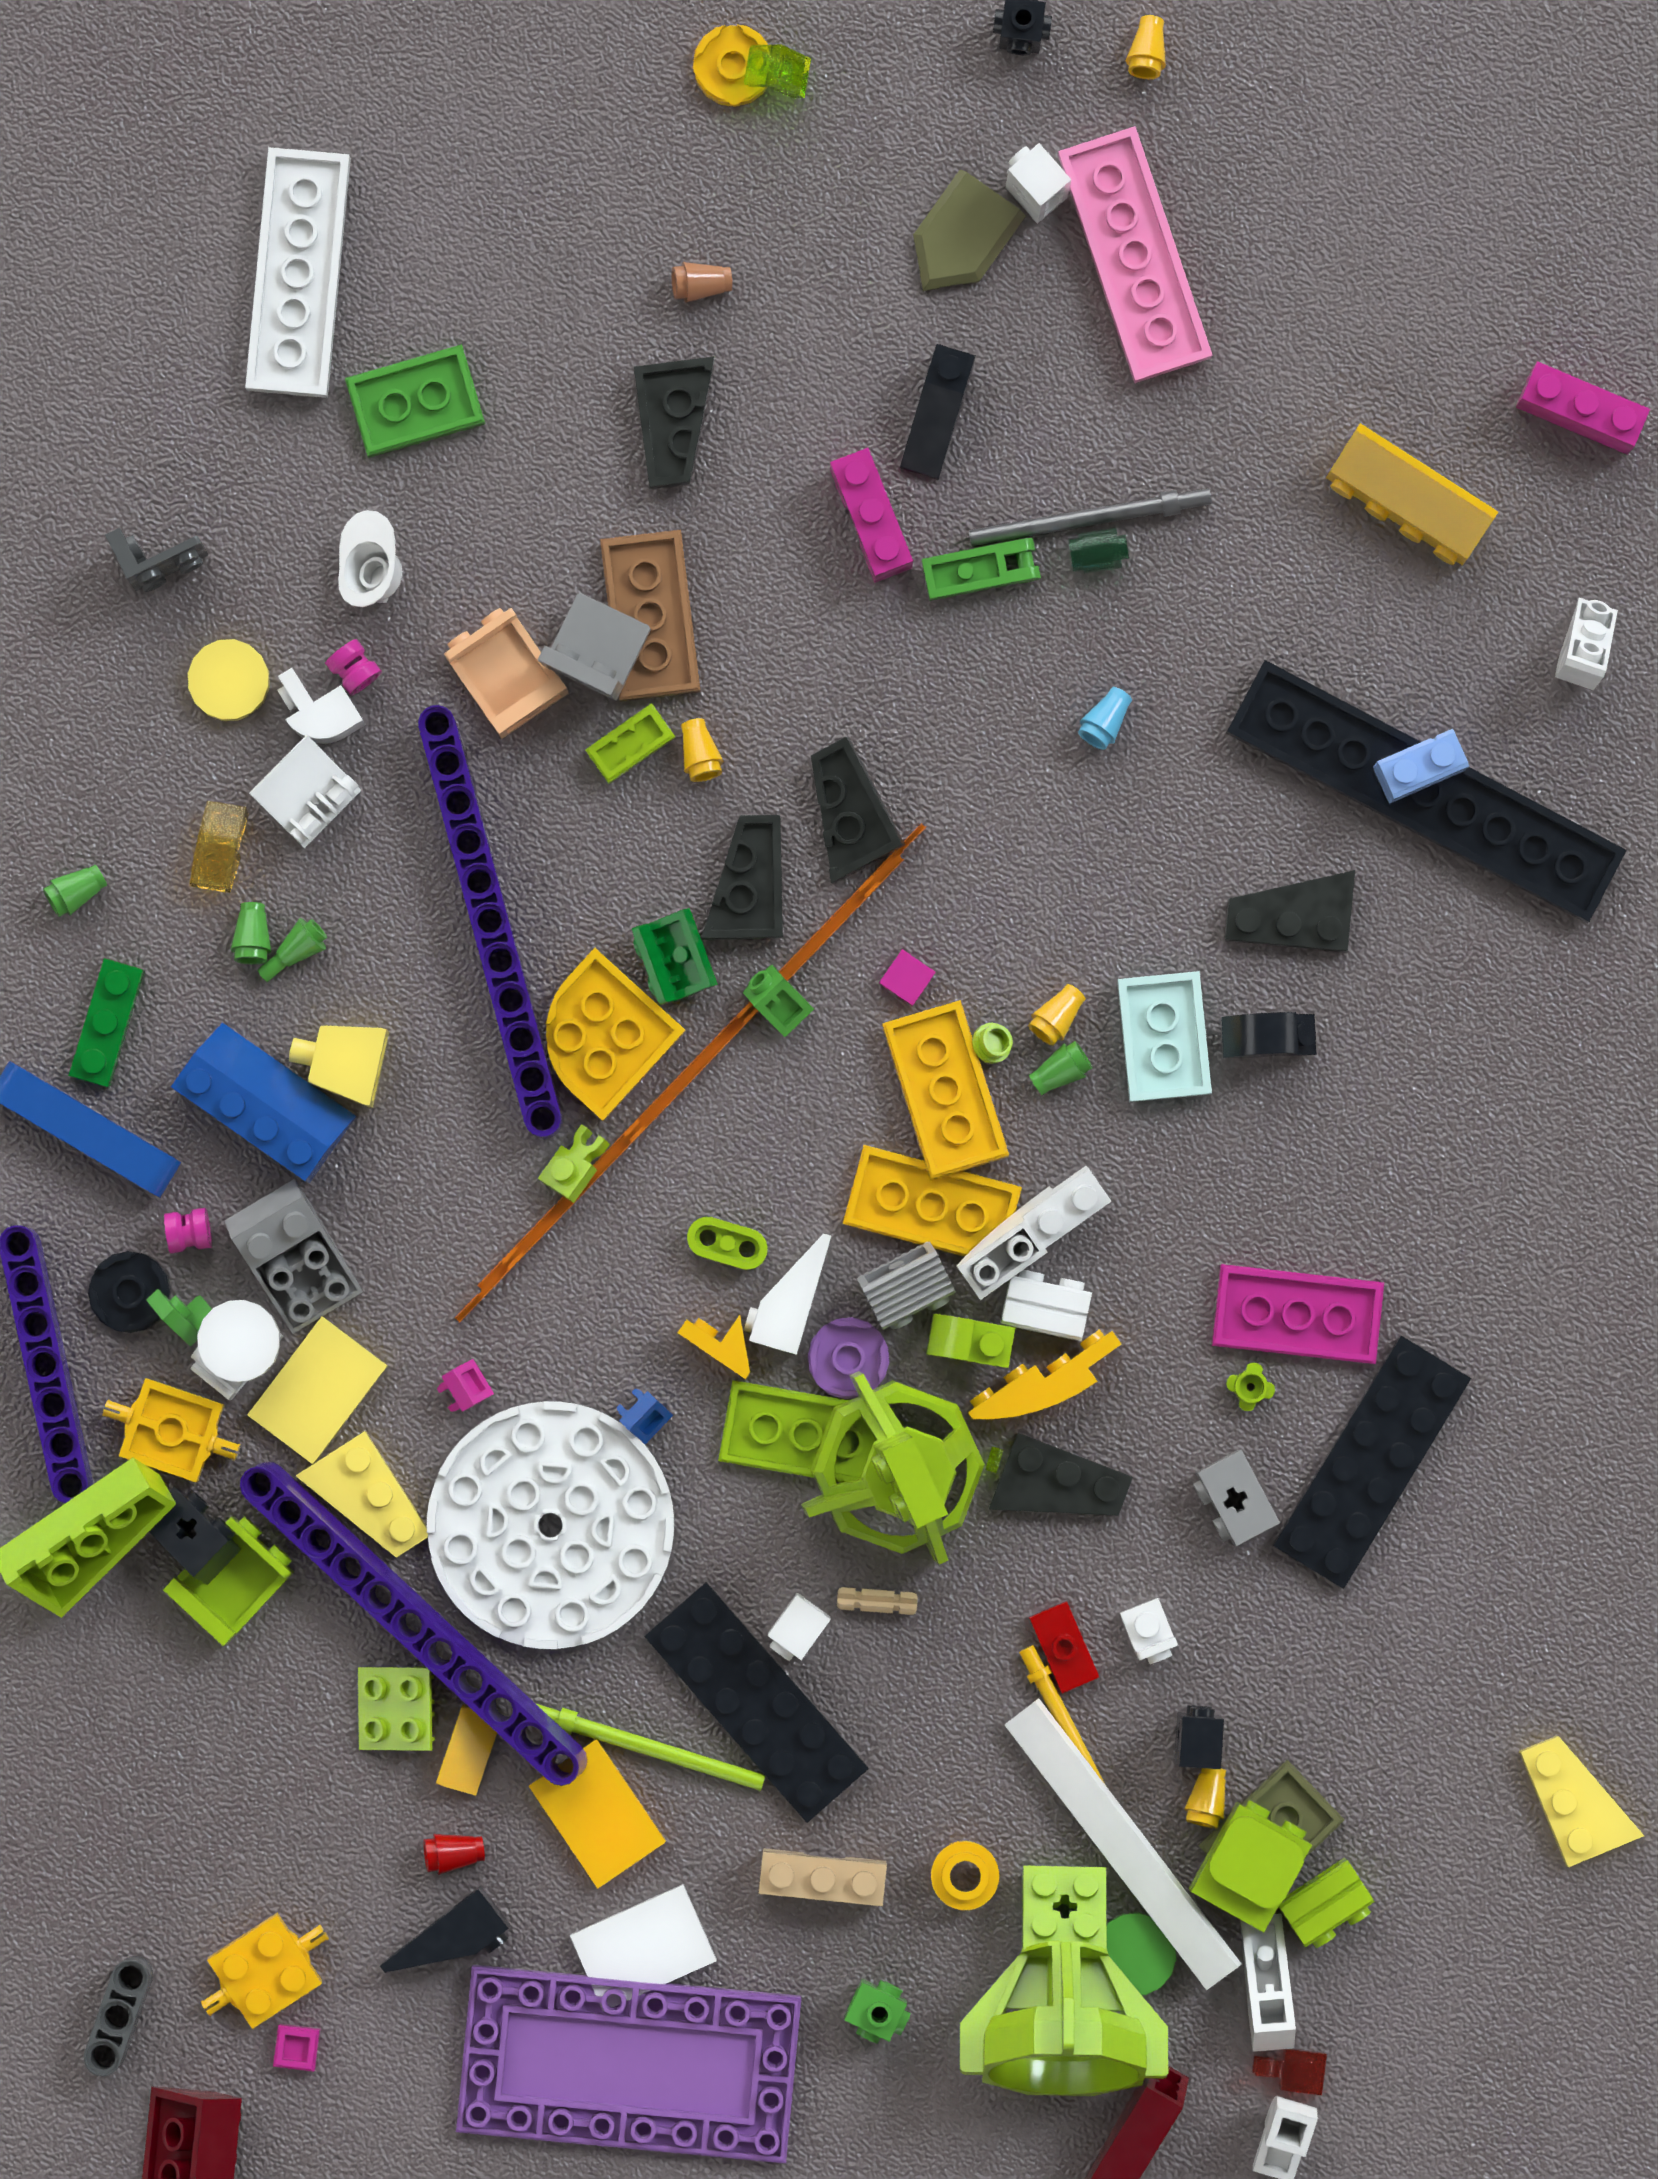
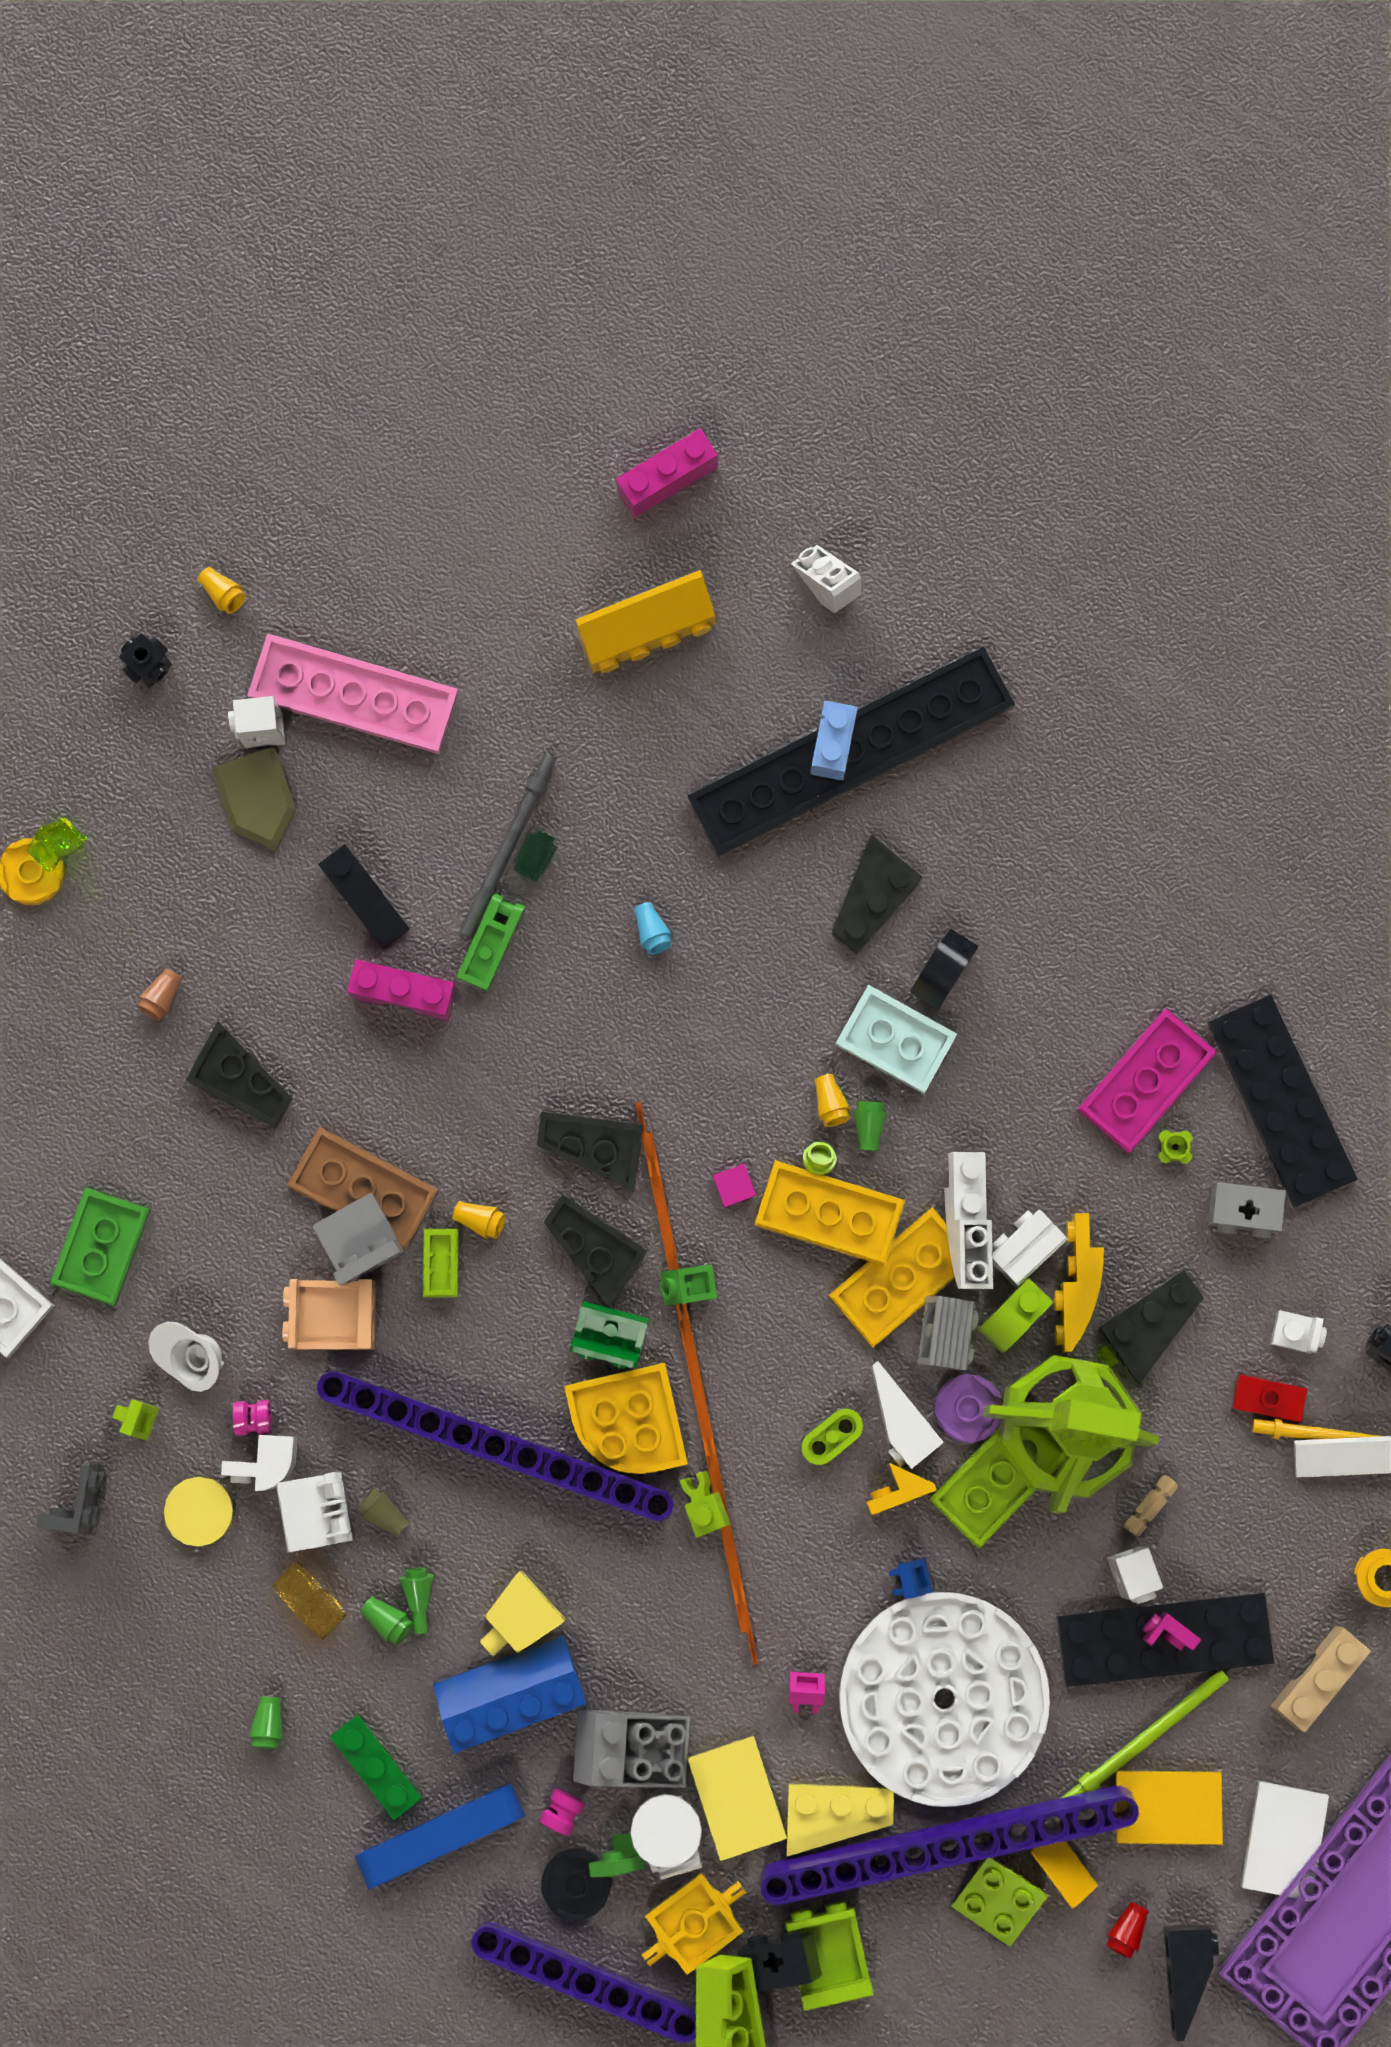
camera: 50 degrees left, 5 degrees down
(274, 556) = (136, 1419): none -> lime tile
(350, 857) = (381, 1511): none -> olive cone
(766, 1707) = (1177, 1634): none -> dark pink bracket

